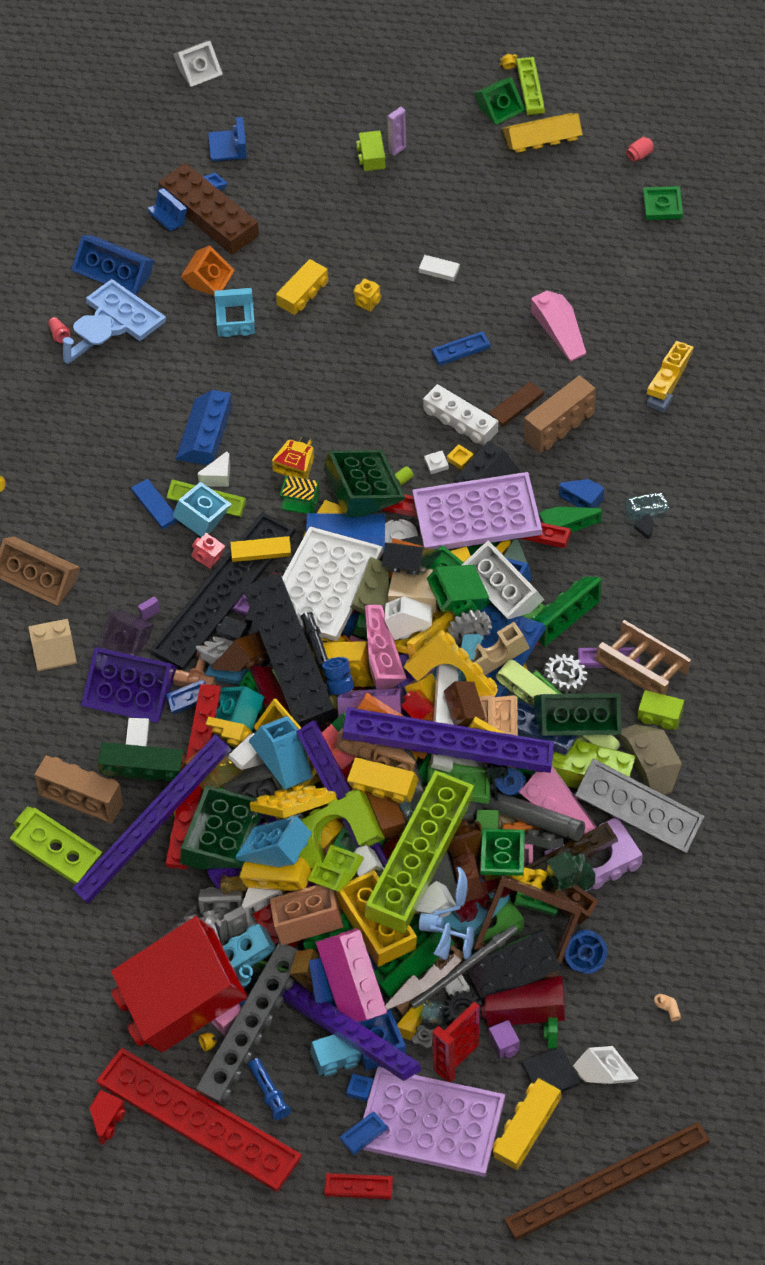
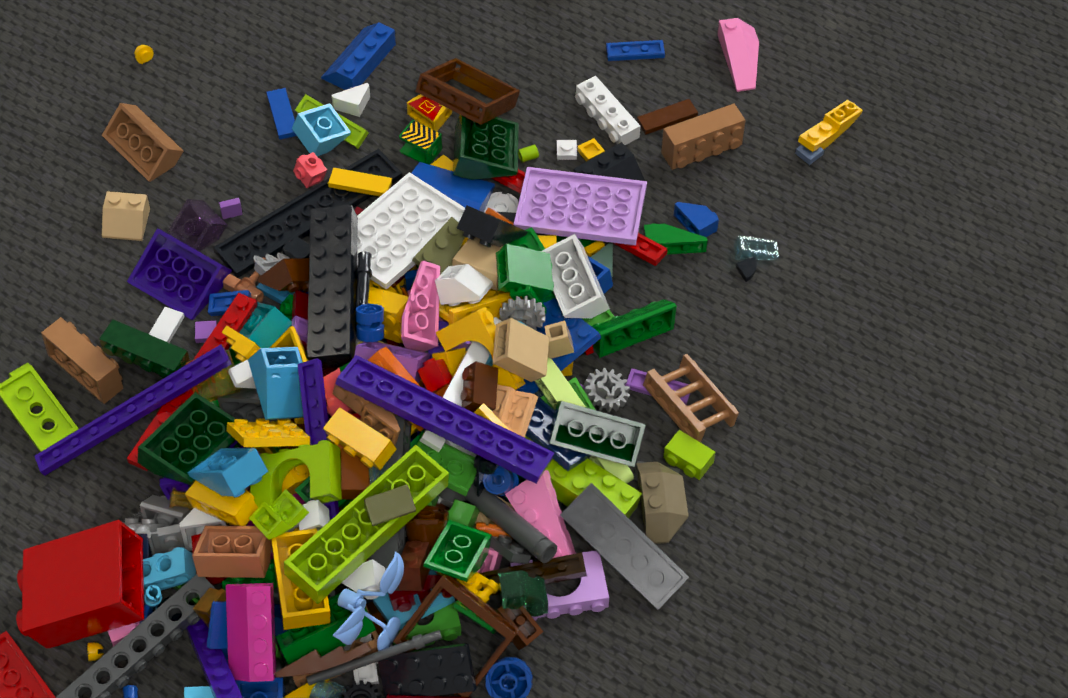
camera: 15 degrees right, 0 degrees up
(176, 729) = (203, 330): none -> medium lavender tile
(269, 695) = (301, 327): none -> medium lavender tile
(324, 445) = (433, 86): none -> reddish brown window
(436, 829) = (389, 505): none -> olive slope
(488, 659) = (520, 350): none -> tan brick

